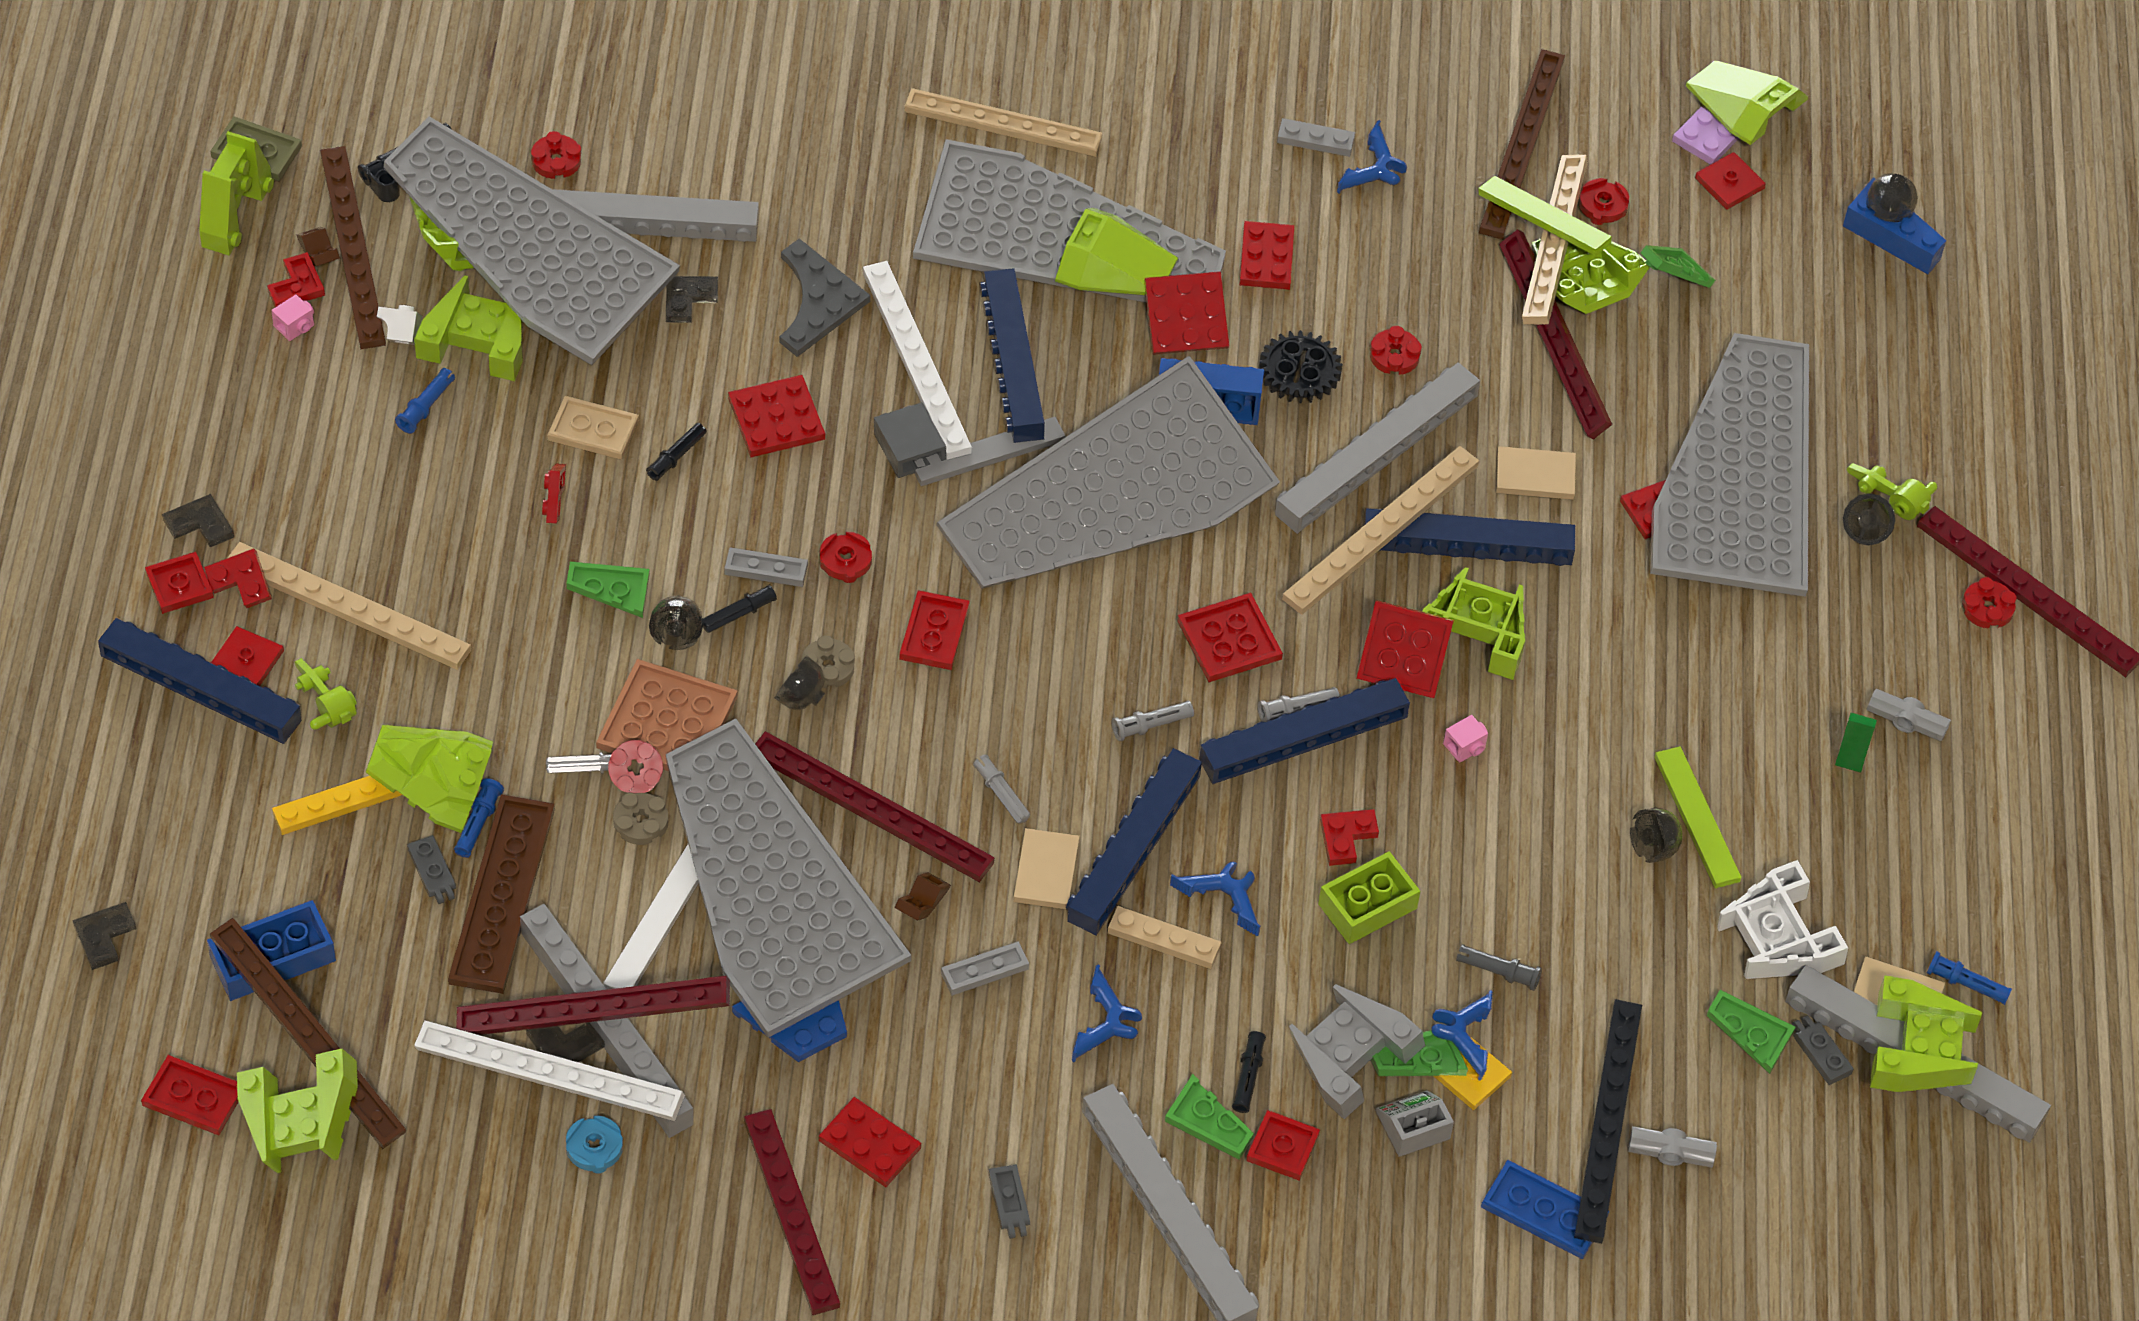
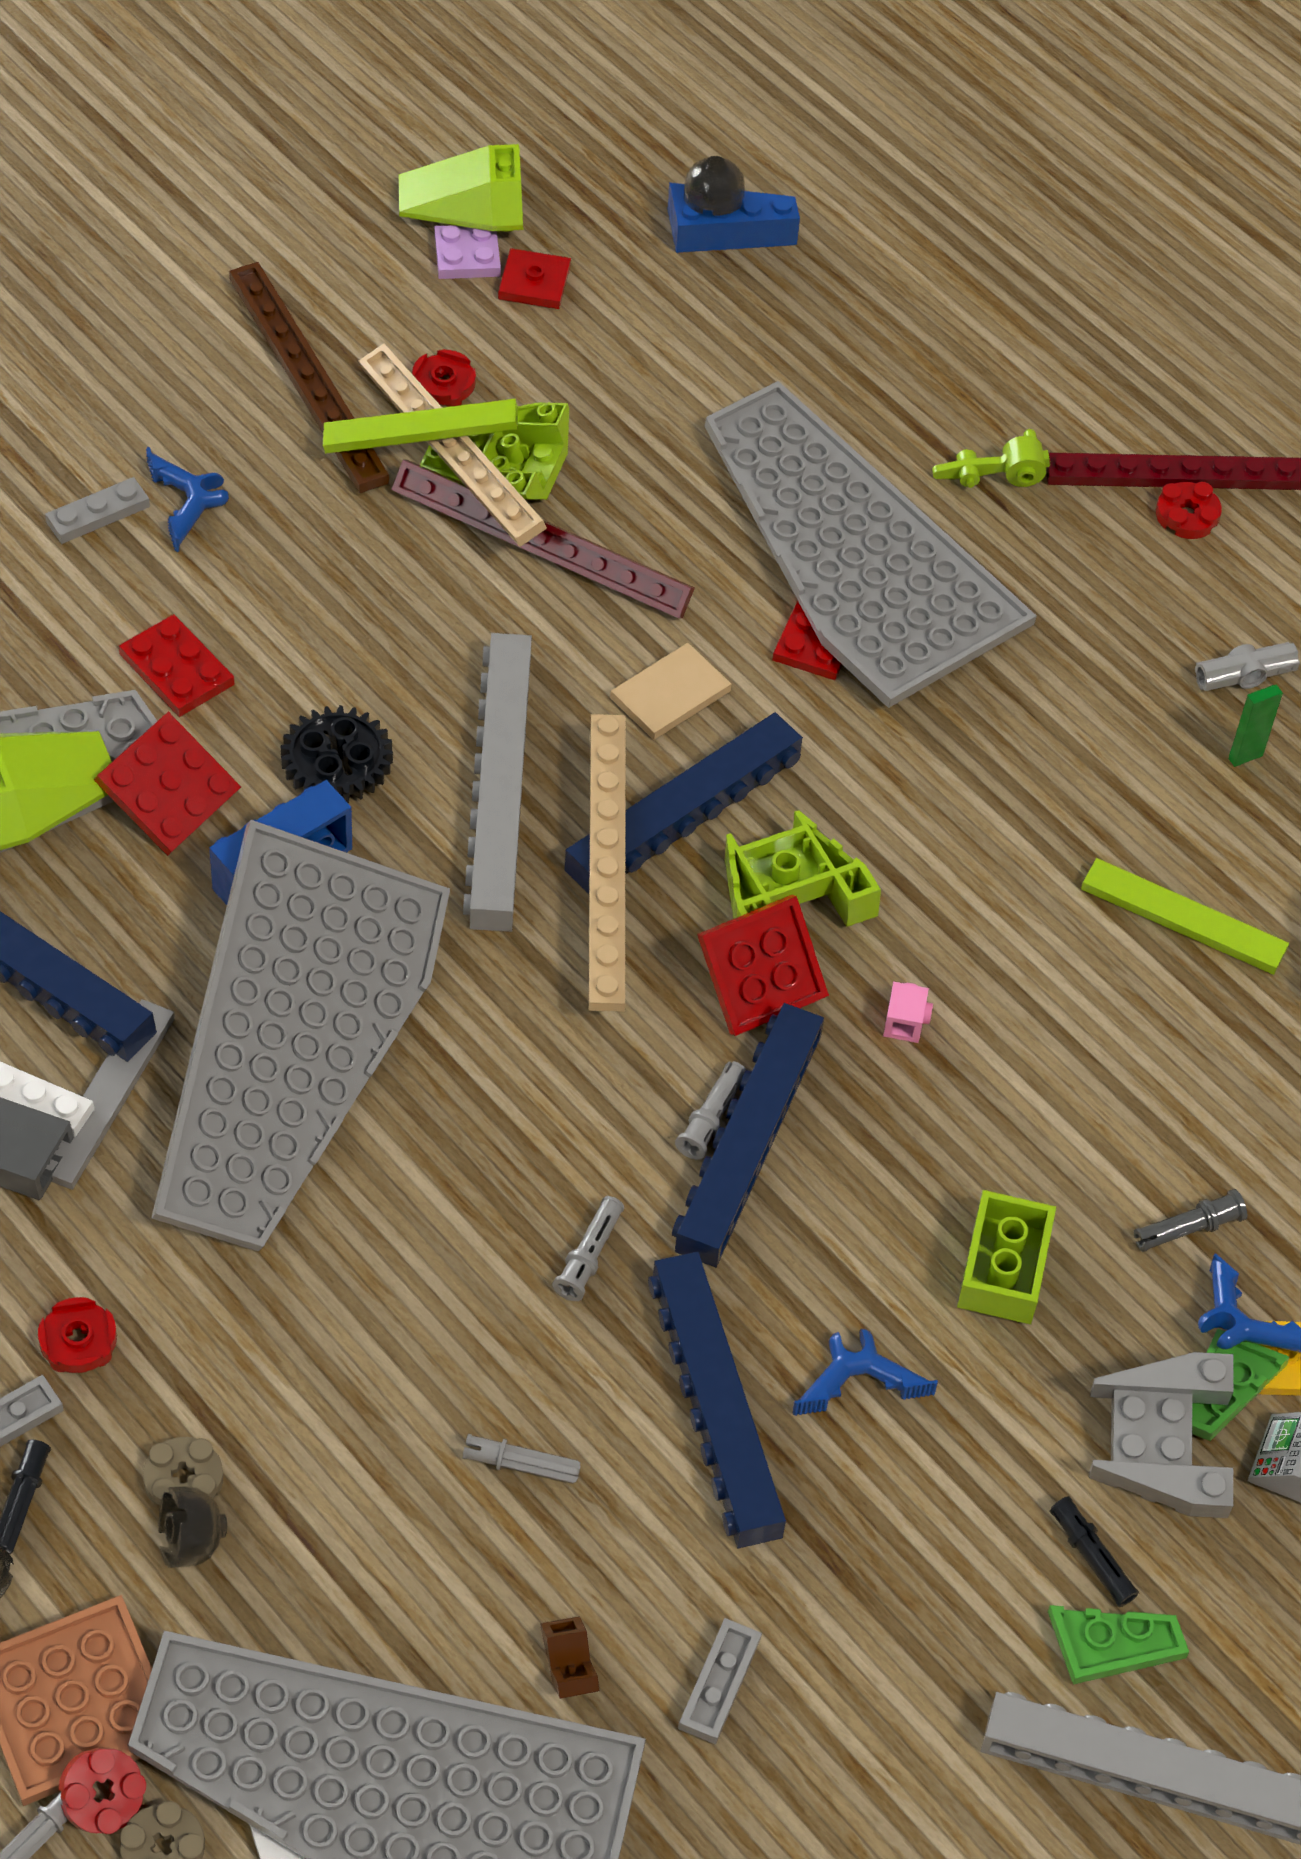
camera: 45 degrees left, 0 degrees up
(875, 808) = (409, 1600): dark red plate -> none
(934, 630) = (262, 1339): red plate -> none
(1046, 868) = (658, 1508): tan tile -> none
(1112, 1024) = (898, 1607): blue piece -> none
(1164, 937) = (853, 1478): tan plate -> none
(1230, 637) = (570, 1094): red plate -> none
(1283, 1145) = (1212, 1601): red plate -> none
(1342, 829) = (894, 1211): red plate -> none
(1395, 339) = (408, 653): red plate -> none
(1656, 834) = (1180, 964): clear smoke cylinder -> none
(1676, 262) = (579, 388): bright green wing -> none
(1868, 519) = (1018, 505): clear smoke cylinder -> none

